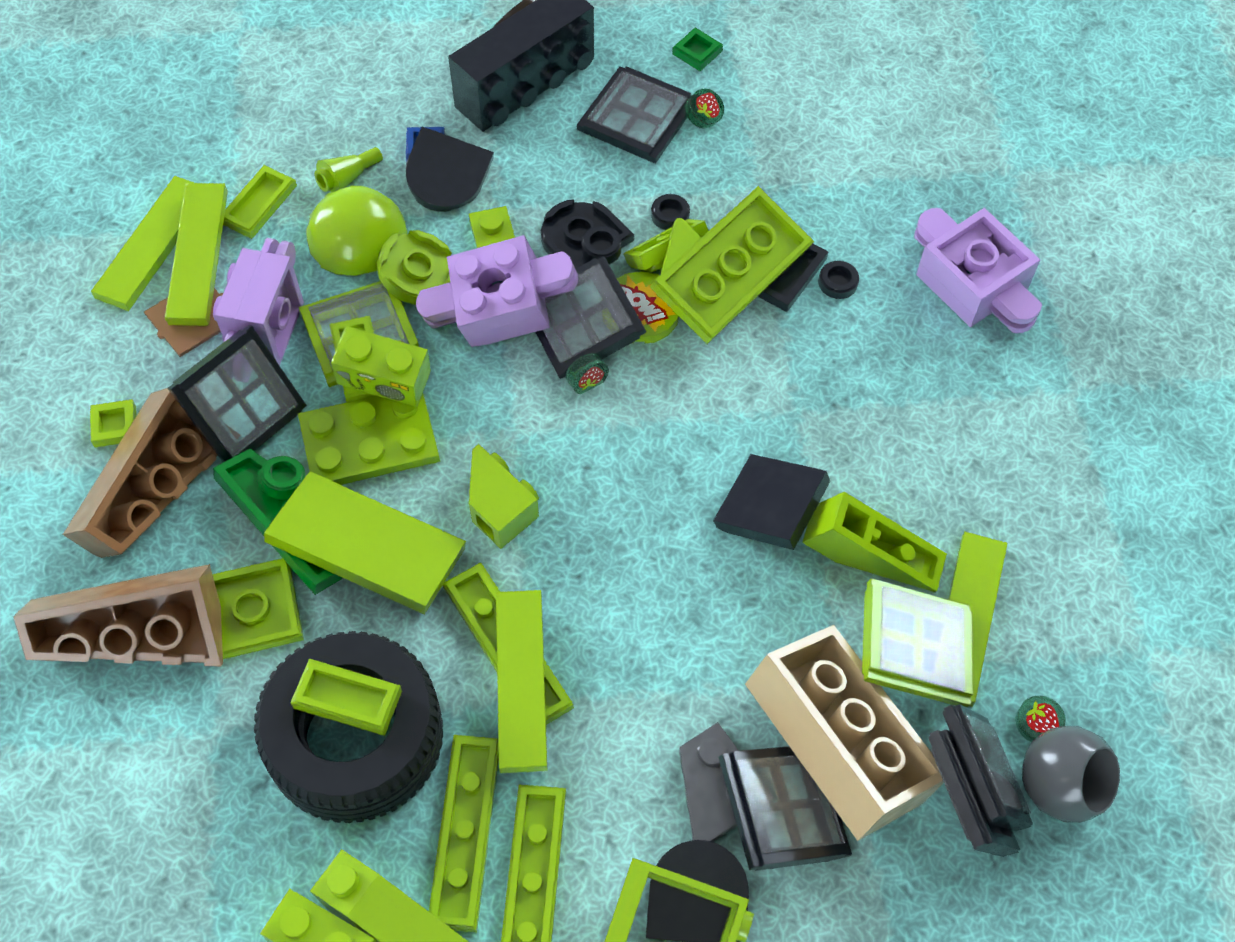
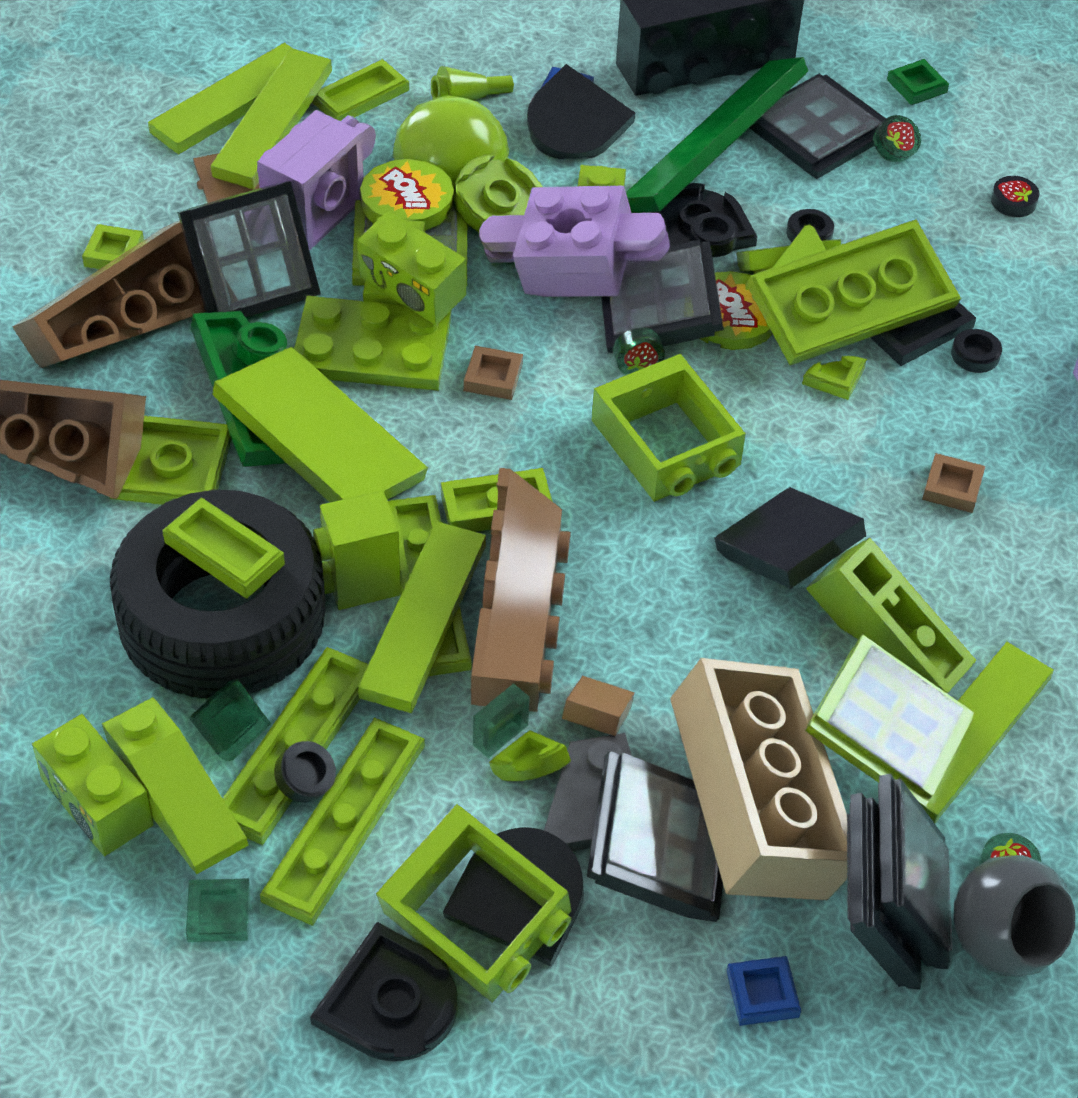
camera: 20 degrees right, 10 degrees down
(341, 290) = (408, 189): none -> tile
(406, 835) = (230, 720): none -> clear green tile
(449, 644) = (359, 550): none -> lime brick
(477, 428) = (493, 372): none -> medium nougat tile
(487, 859) = (305, 771): none -> black tile
(498, 500) = (481, 436): lime slope -> none
(532, 550) = (471, 501): none -> lime plate
(564, 153) = (714, 135): none -> green tile
(590, 638) = (519, 594): none -> medium nougat wedge
(611, 406) = (667, 384): none -> lime window
(620, 751) = (500, 720): none -> clear green tile
(655, 773) = (529, 758): none -> lime tile
(688, 706) = (598, 705): none -> medium nougat tile
(744, 339) = (836, 377): none -> lime tile
(812, 130) = (1015, 196): none -> black tile
(869, 404) = (953, 483): none -> medium nougat tile
(909, 903) = (763, 990): none -> blue tile

